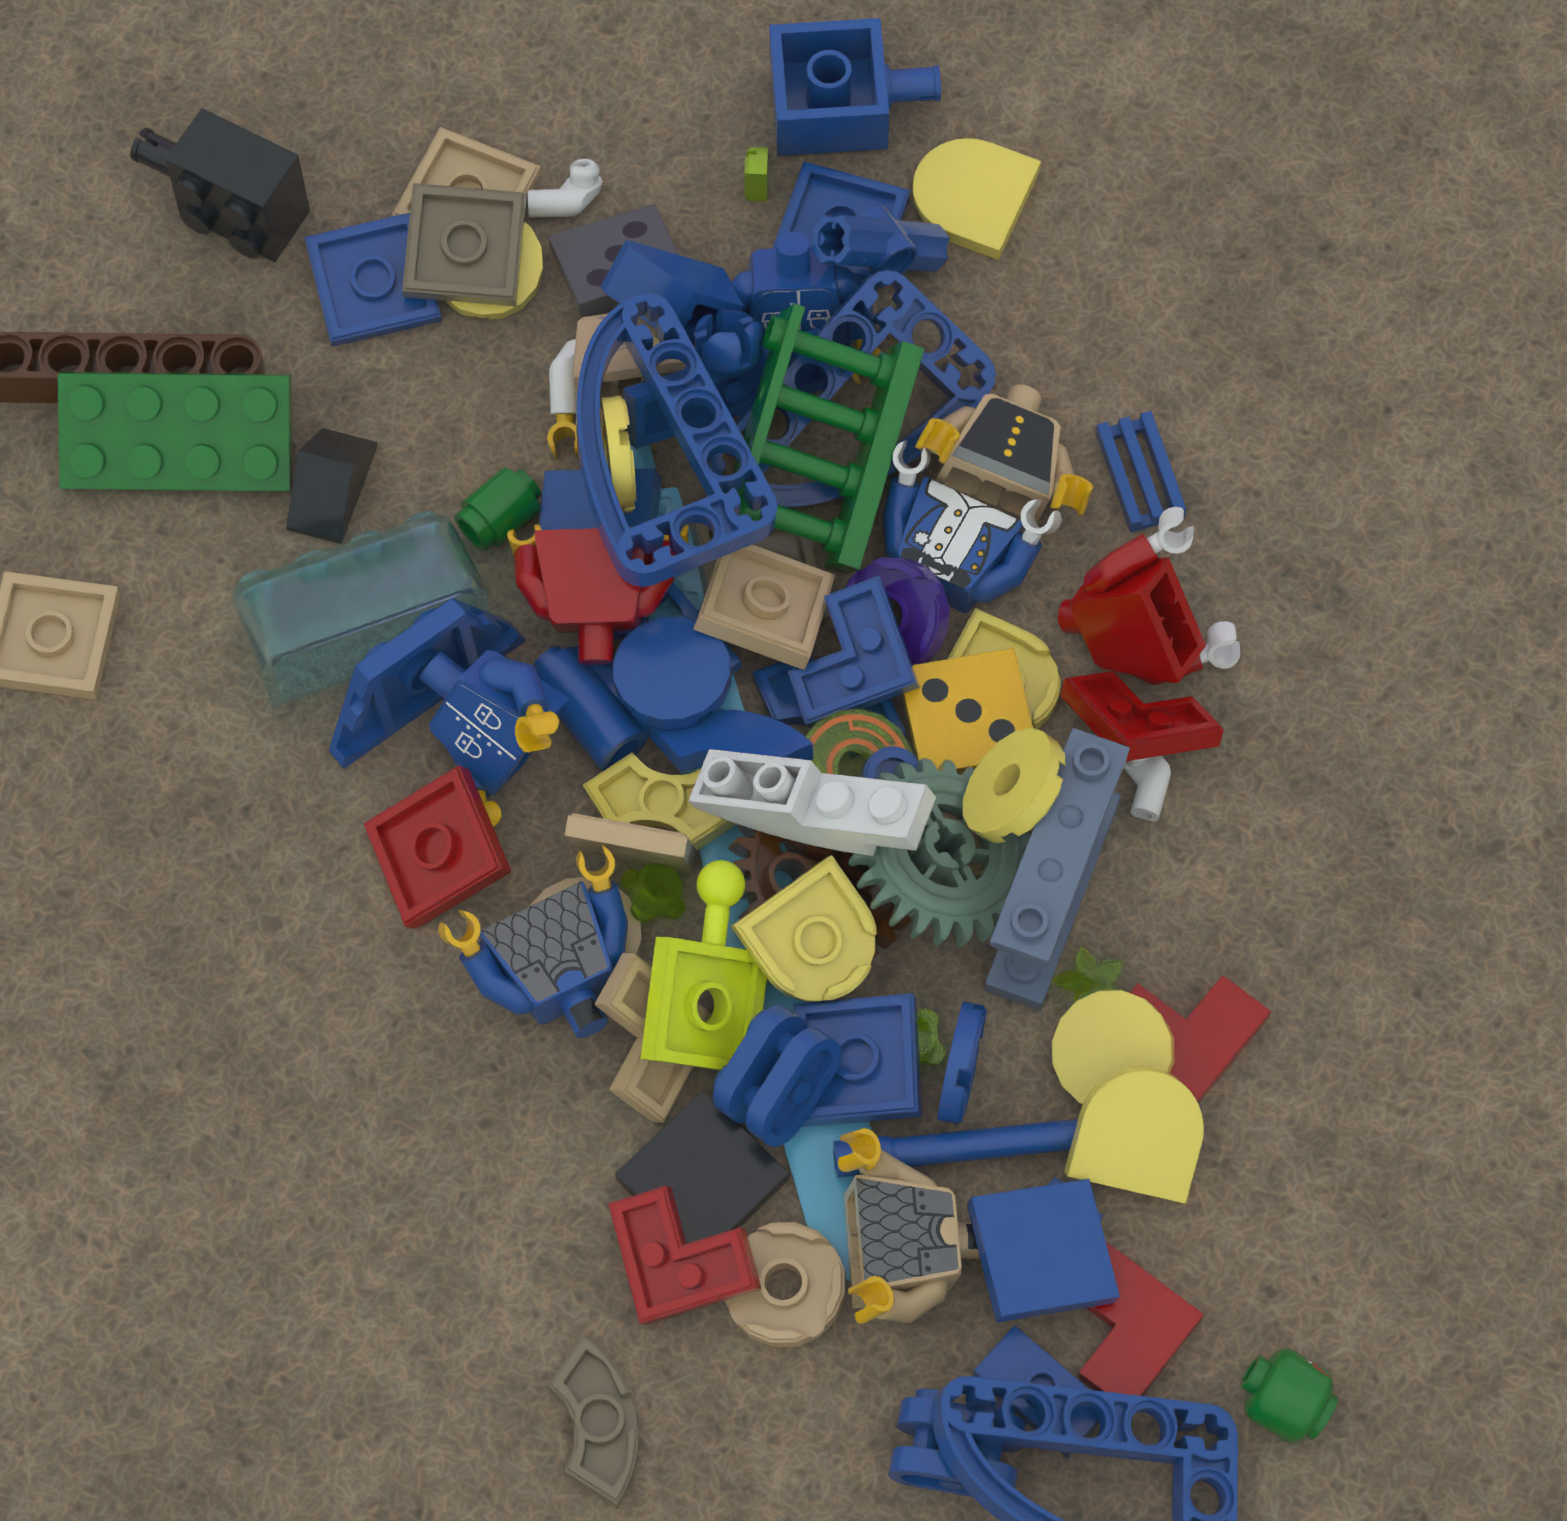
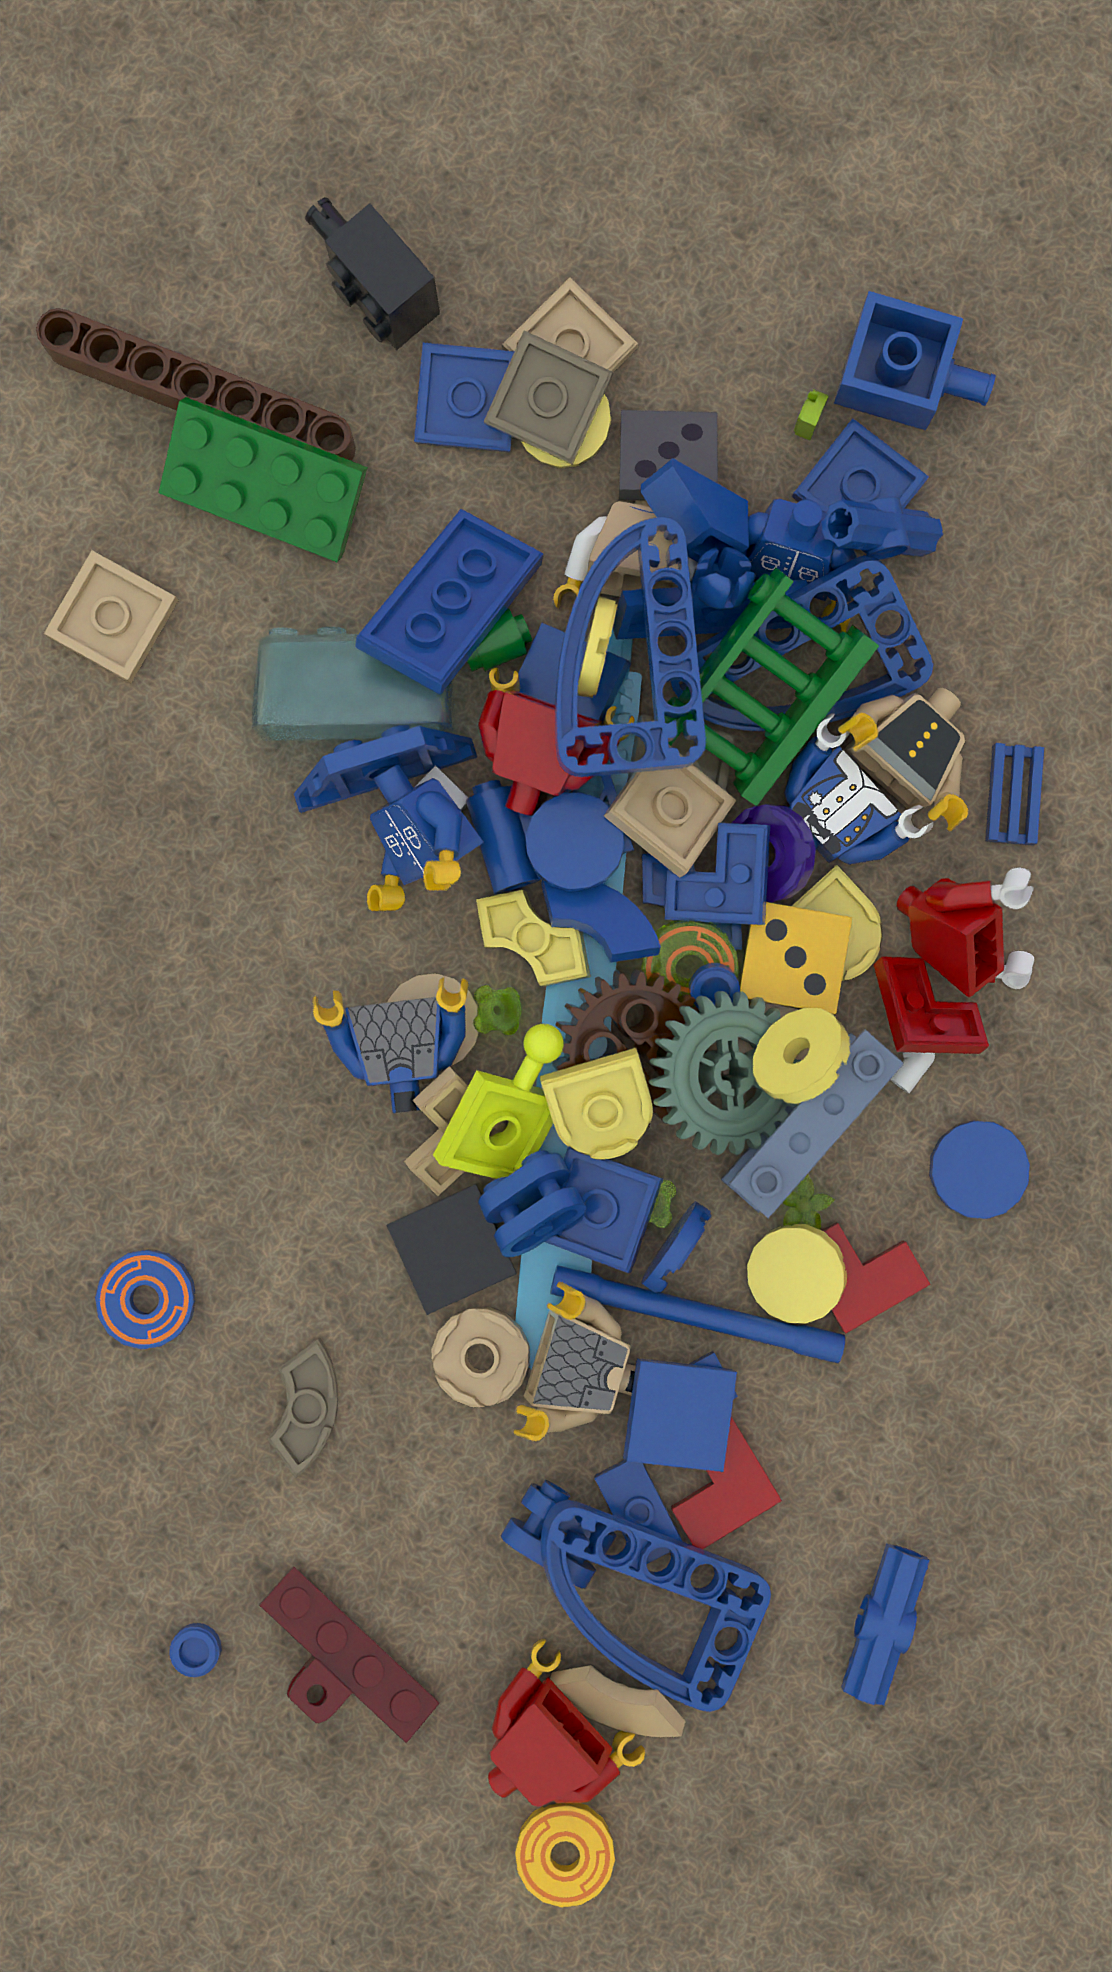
camera: 25 degrees right, 20 degrees up
(328, 484) = (371, 565): black slope -> none
(350, 1330) = (116, 1302): none -> blue tile
(434, 476) = (449, 601): none -> blue tile
(437, 847) = (344, 913): red tile -> none
(571, 197) = (653, 380): white arm -> none
(630, 842) = (490, 973): tan tile -> none
(668, 1273) = (398, 1321): red tile -> none
(809, 806) = (638, 1011): white slope -> none
(974, 192) = (979, 496): light yellow tile -> none
(1138, 1134) = (787, 1352): light yellow tile -> none
(1272, 871) = (979, 1169): none -> blue tile
(1288, 1395) = (819, 1590): green head -> none
(1383, 1407) = (885, 1624): none -> blue piece

